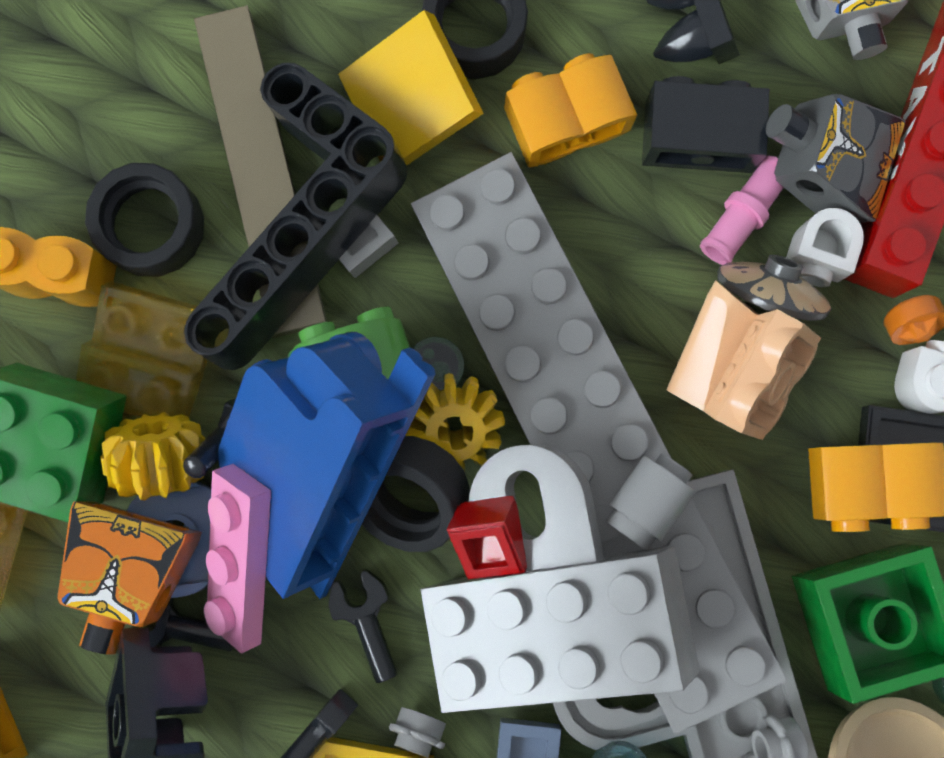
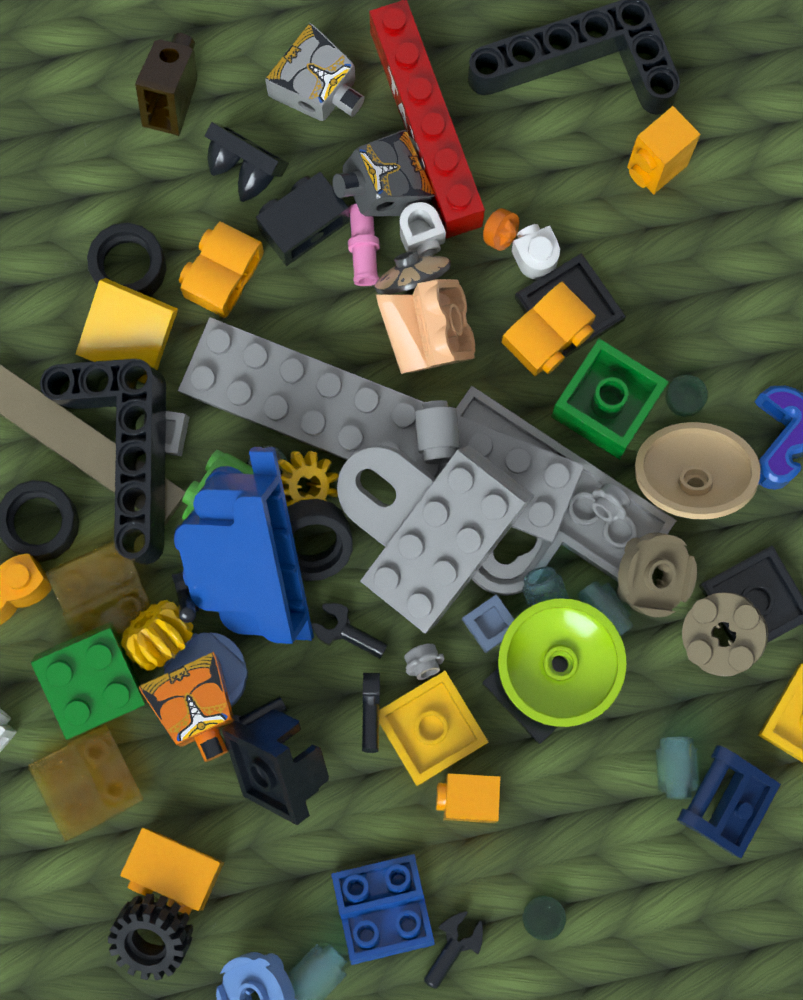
camera: 40 degrees left, 5 degrees down
(237, 557) = (250, 646): bright pink plate -> none
(488, 537) = (372, 521): red slope -> none

